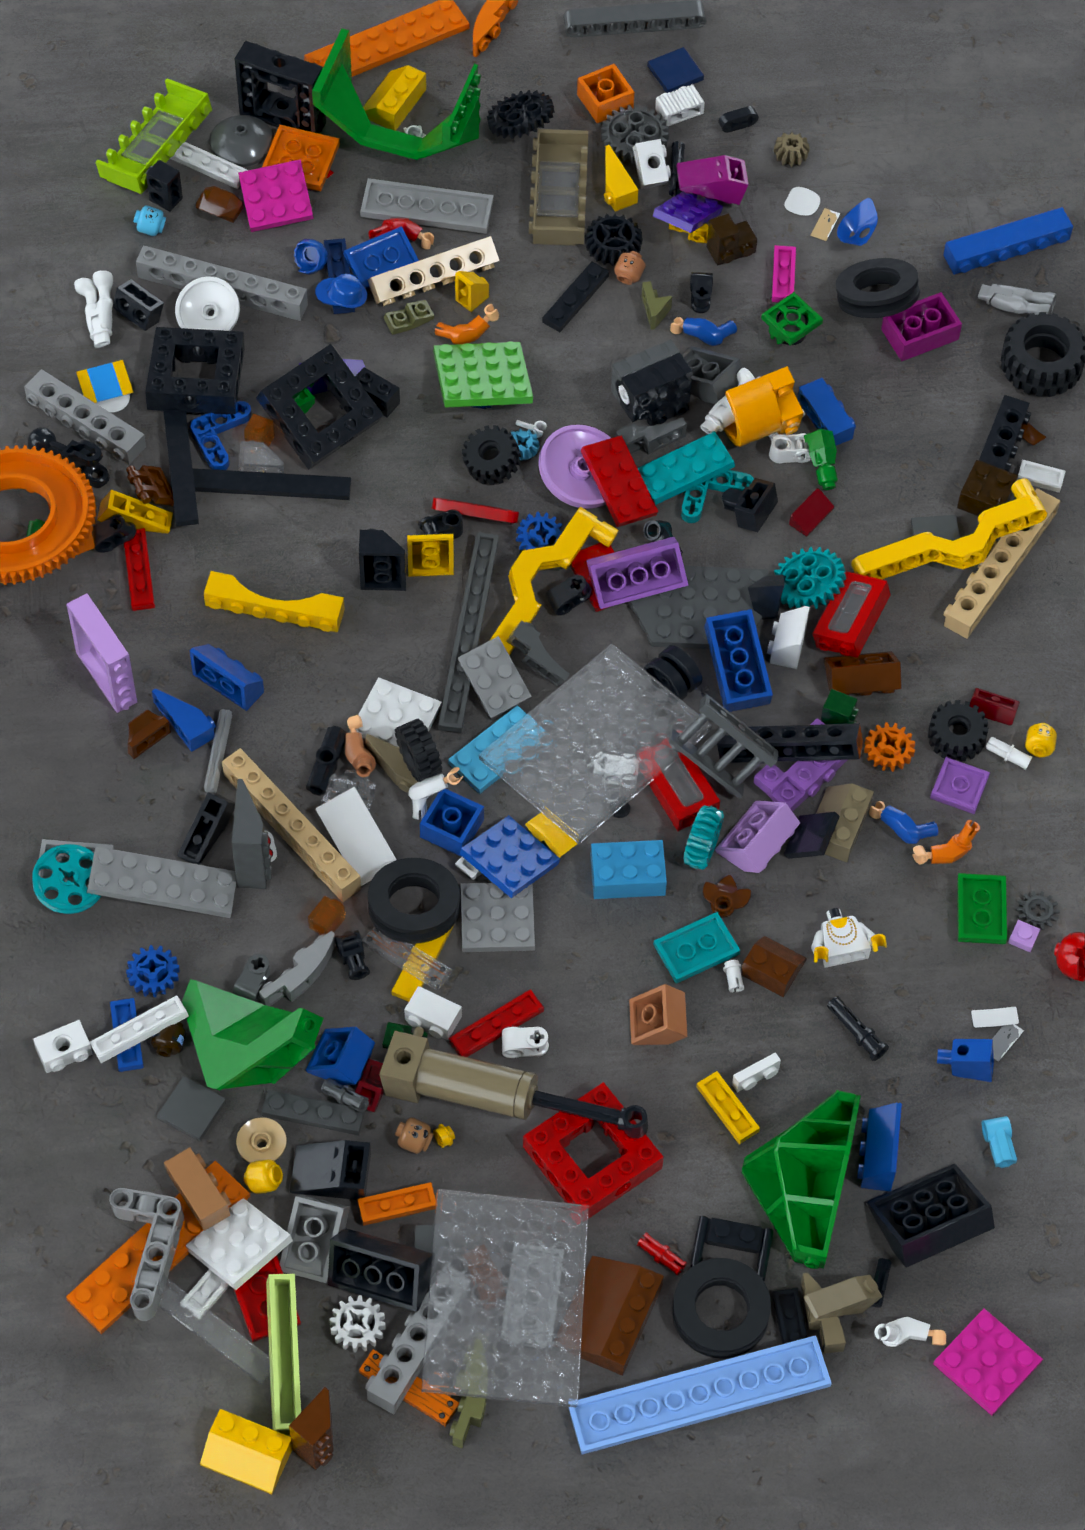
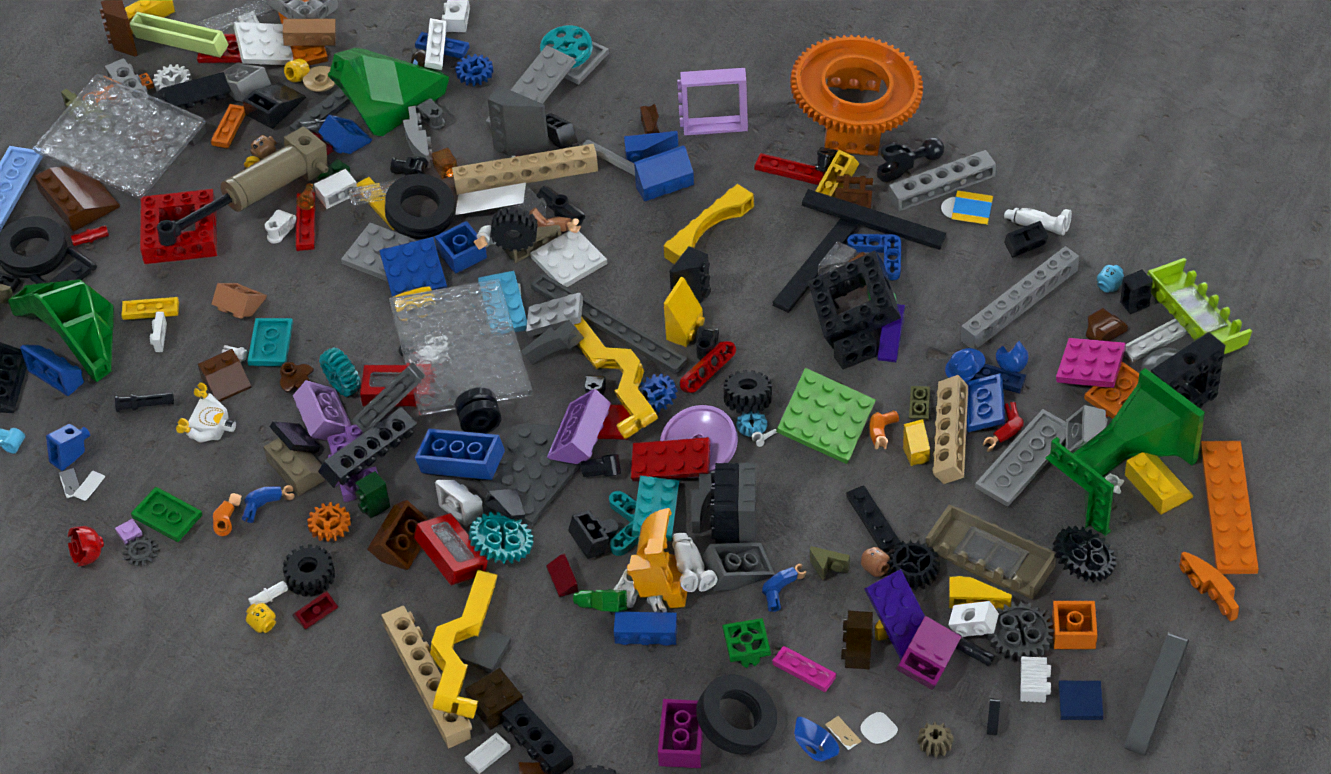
camera: 125 degrees right, 10 degrees down
(195, 394) = (932, 270): black brick -> none
(206, 295) = (995, 276): white dish -> none
(380, 156) = (1084, 426): none -> light grey slope
(471, 1030) = (305, 199): none -> clear orange cone
(628, 869) = (354, 327): dark azure brick -> none
(701, 291) = (824, 603): black piece -> none
(960, 785) = (267, 554): medium lavender tile -> none

